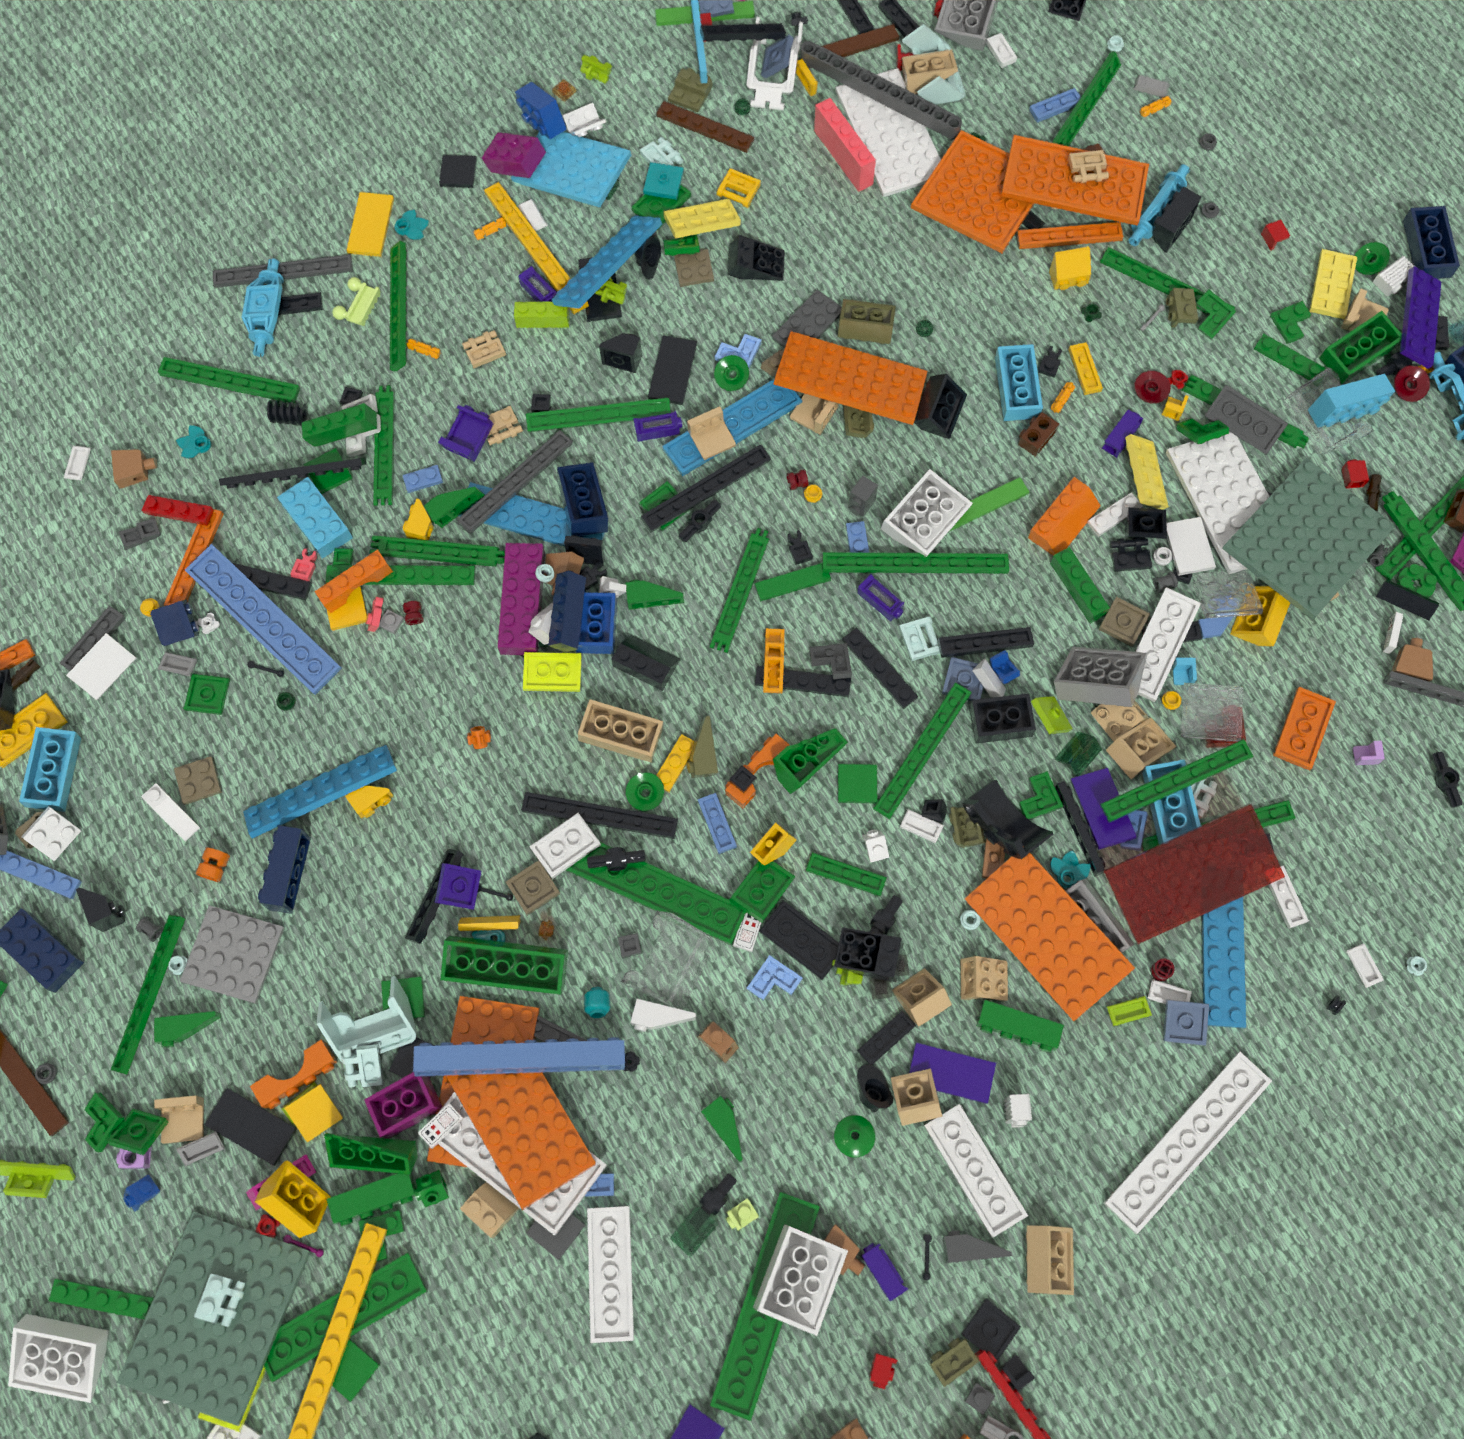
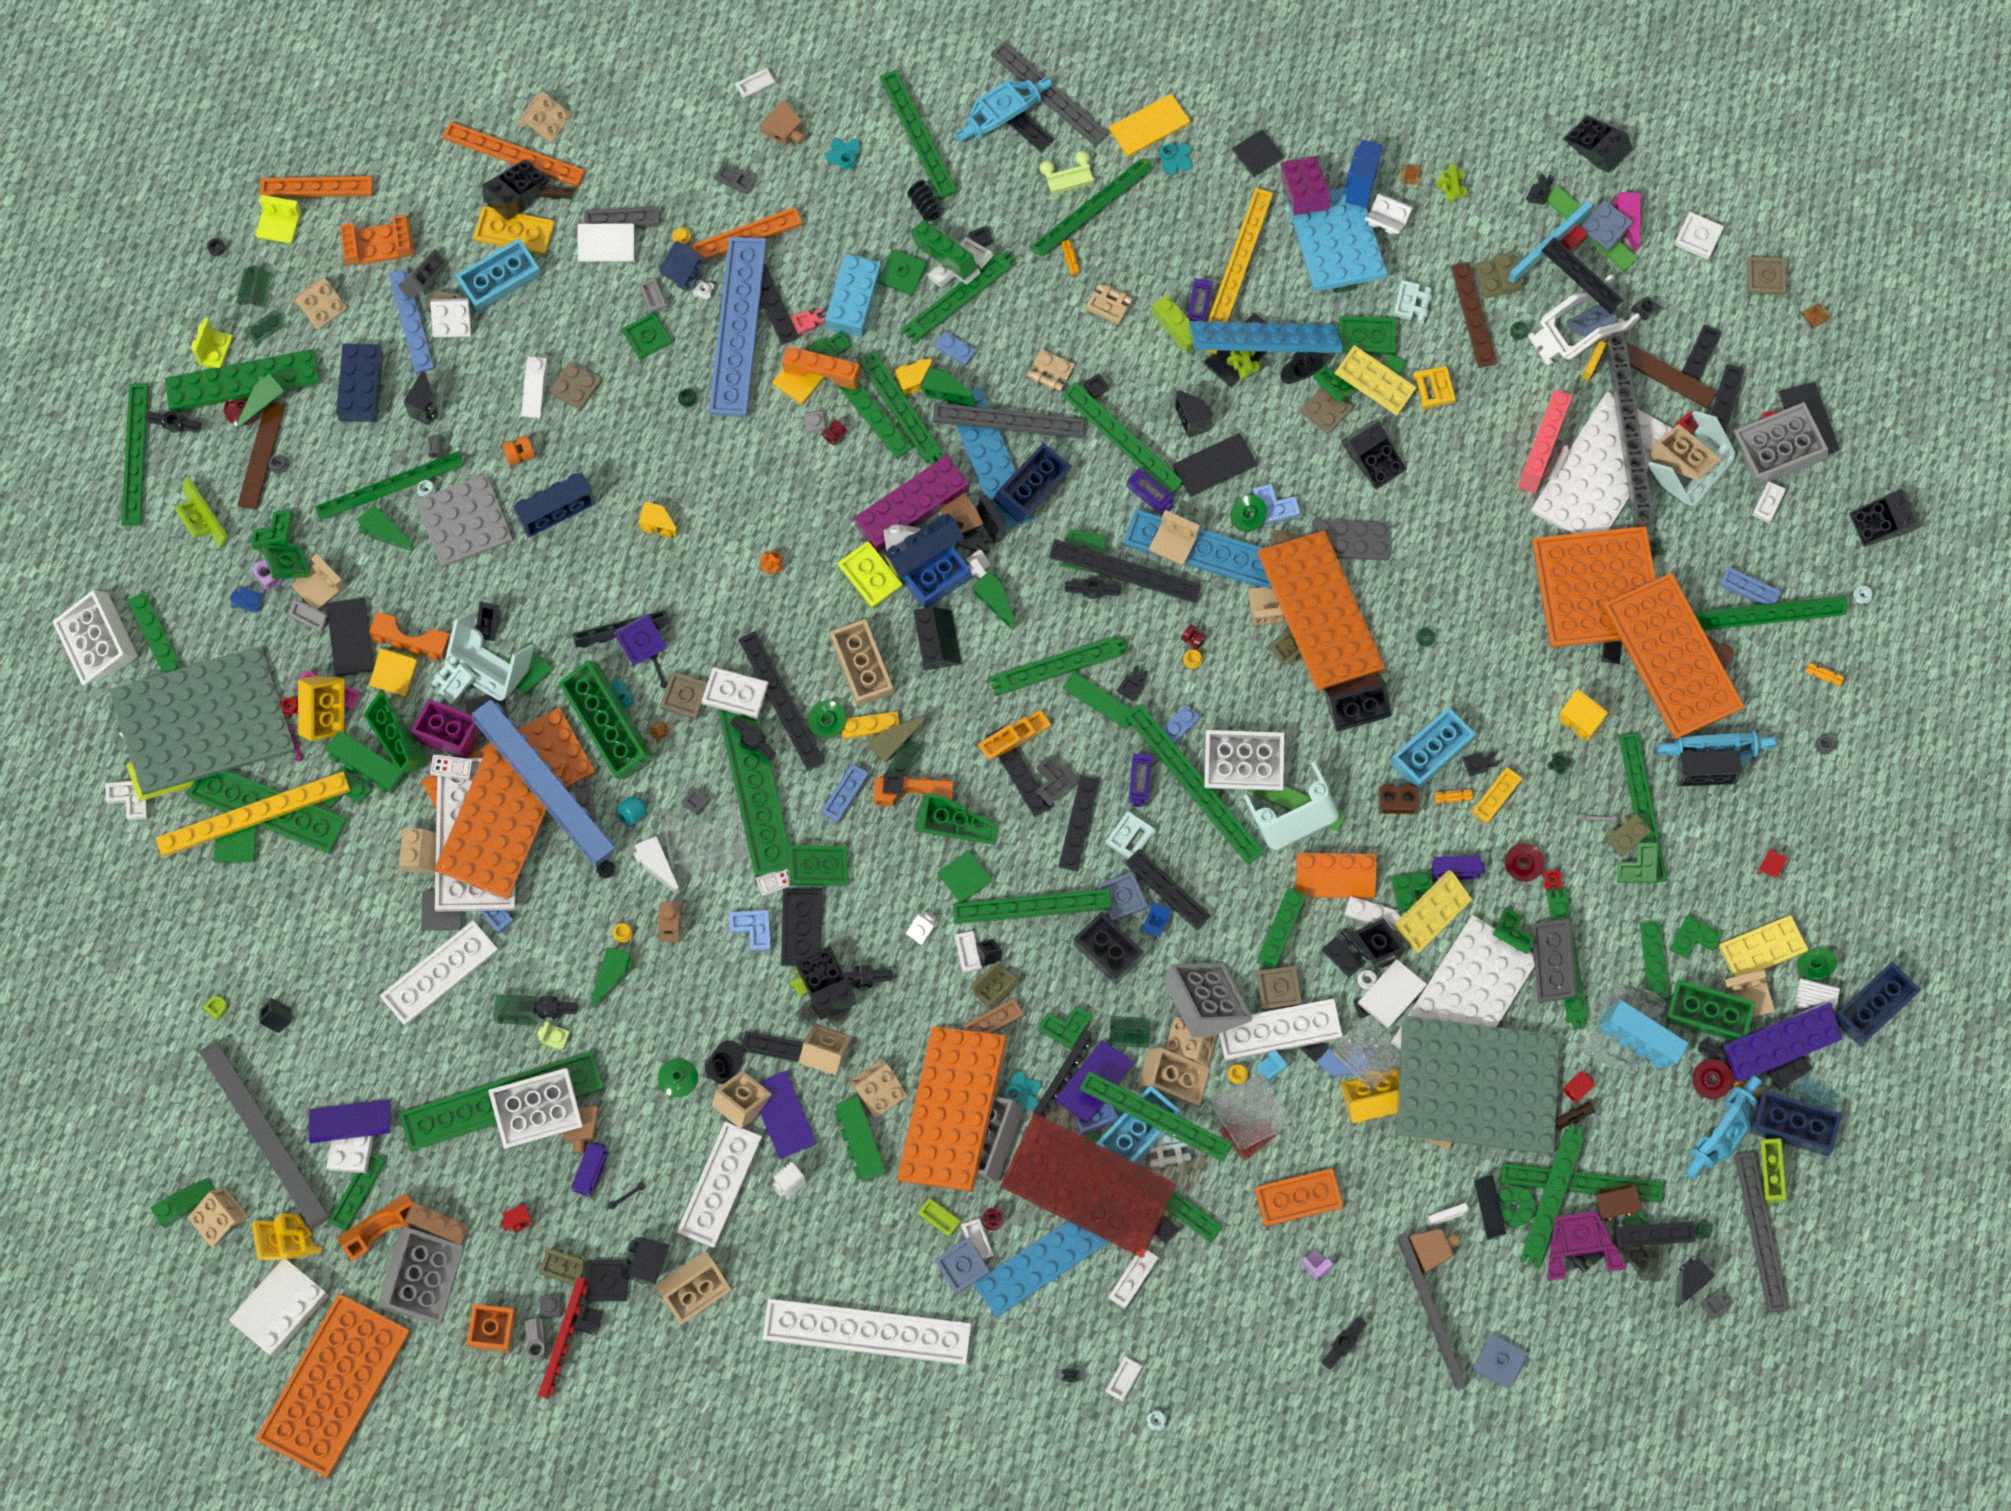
camera: 50 degrees right, 0 degrees up
(177, 510) = (776, 189): red plate -> none
(214, 1297) = (213, 708): light aqua plate -> none
(280, 673) = (696, 348): black hinge -> none
(301, 472) = (880, 251): black plate -> none
(319, 791) = (635, 480): dark azure plate -> none
(336, 998) = (488, 620): none -> black slope
(373, 618) = (804, 406): coral plate -> none
(431, 1188) = (402, 798): green brick -> none
(467, 433) = (1020, 351): dark purple panel -> none
(489, 228) = (1224, 220): light orange axle -> none
(489, 923) = (631, 685): yellow tile -> none
(532, 214) = (1266, 244): white tile -> none
(546, 569) = (949, 504): light aqua plate -> none
(651, 21) = (1539, 192): none -> black plate
(663, 180) = (1385, 322): teal plate -> none
(695, 1089) = (622, 933): none -> yellow plate
(698, 199) = (1394, 364): none -> green tile
(725, 756) = (906, 758): none -> clear green plate
(773, 844) = (859, 847): yellow slope -> none
(846, 874) = (881, 922): green tile -> none
(862, 496) = (1216, 698): dark grey brick -> none
(866, 321) = (1389, 584): olive slope -> none
(968, 1248) = (653, 1217): dark grey slope -> none
(970, 913) = (918, 1037): light aqua plate -> none
(989, 679) = (1135, 915): white slope -> none
(1001, 532) = (1299, 822): none -> light aqua windscreen
(1002, 1284) = (644, 1260): none -> black slope
(1003, 822) = (1018, 1008): black panel -> none
(1051, 715) = (1143, 985): lime plate -> none
(1069, 235) = (1621, 692): orange plate -> none
(1088, 161) = (1693, 651): tan plate -> none
(1111, 477) = (1407, 886): none -> green plate
(1151, 86) = (1845, 656): light grey tile -> none
(1165, 582) = (1342, 997): dark grey bush -> none
(1174, 408) = (1520, 895): yellow panel -> none
(1210, 213) = (1749, 798): dark grey plate -> none
(1377, 558) = (1508, 1157): dark grey pin -> none

